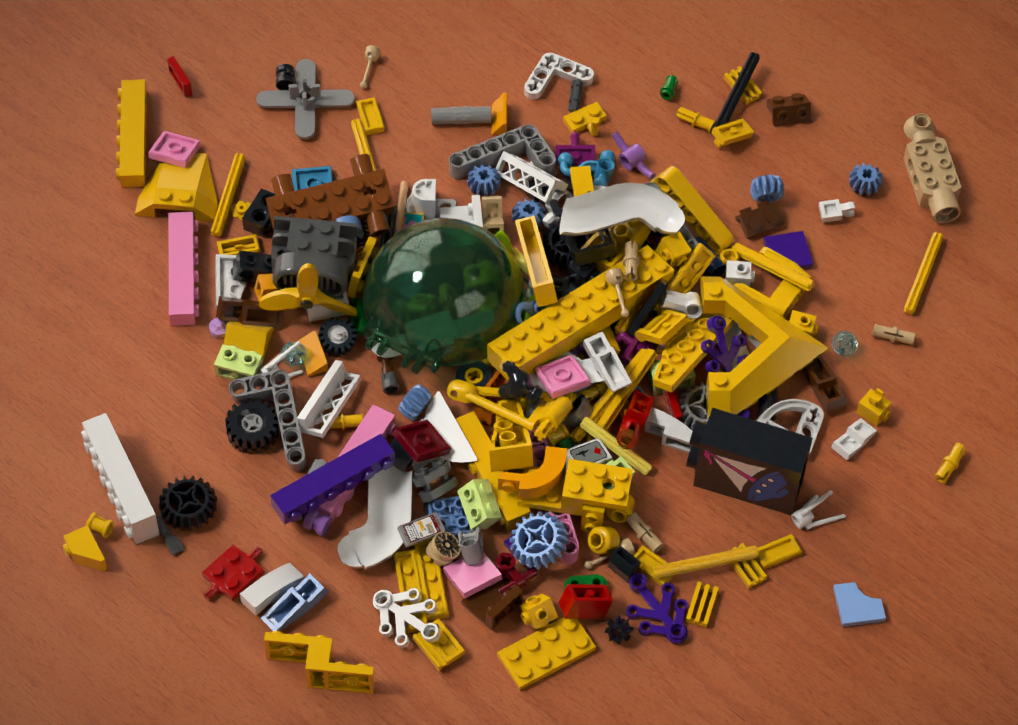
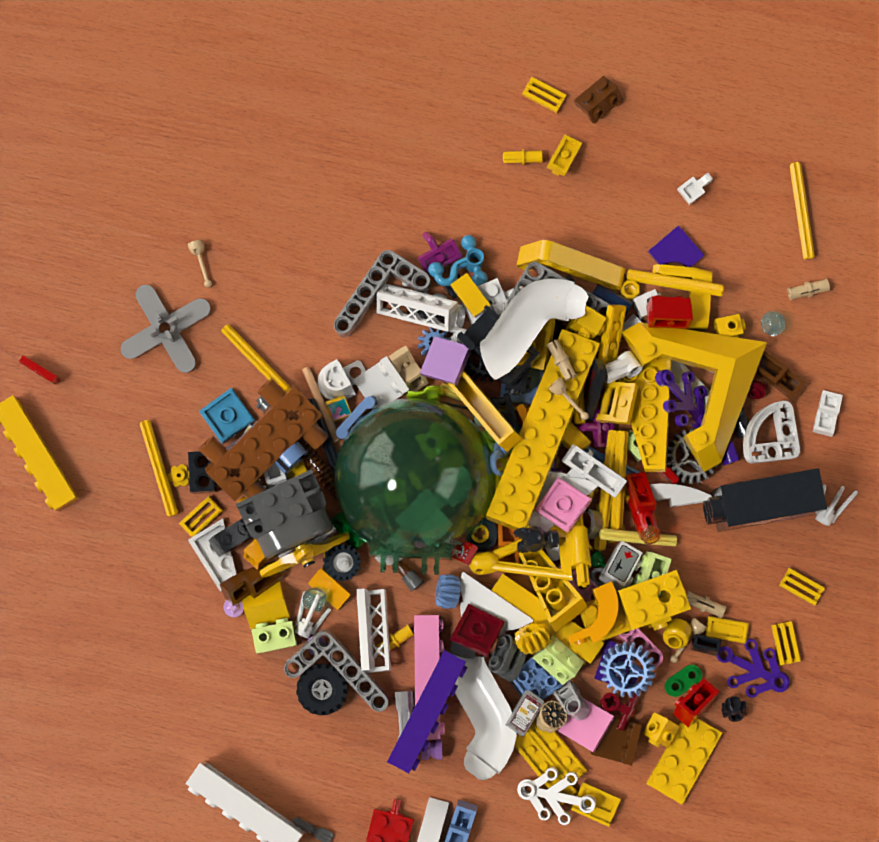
camera: 25 degrees left, 25 degrees up
(174, 149) = (83, 449): bright pink tile -> none
(180, 189) = (111, 484): yellow wedge -> none
(182, 268) = (166, 568): bright pink brick -> none
(185, 495) = (313, 803): black gear -> none
(285, 76) = (134, 317): black wheel -> none
(362, 266) = (327, 486): yellow wing -> none
(370, 116) = (233, 313): yellow tile -> none
(448, 376) = (464, 553): none -> red tile
(461, 115) = (314, 269): light grey axle -> none
(467, 467) = (532, 638): none -> yellow gear
(484, 180) = (369, 333): medium blue gear -> none
(499, 115) = (348, 250): light orange slope -> none
(529, 221) = (445, 361): none -> tile
(555, 68) = (369, 169): white beam -> none
(575, 95) = (403, 191): dark grey axle -> none
(585, 118) = (425, 210): yellow plate -> none
(632, 156) = (490, 230): medium lavender piece -> none
(667, 91) = (482, 139): green pin -> none
(705, 562) = (770, 606): yellow axle -> none
(738, 89) = (545, 110): black axle -> none
(752, 278) = (669, 312): none -> red brick
(760, 219) = (634, 233): reddish brown bracket -> none
(767, 188) = (627, 201): medium blue gear -> none
(778, 552) = (820, 558): yellow tile -> none
(797, 388) = (757, 390): none -> dark red plate
(866, 179) = (712, 142): medium blue gear -> none
(874, 407) = (830, 375): yellow brick -> none
(931, 169) = (757, 99): tan brick -> none

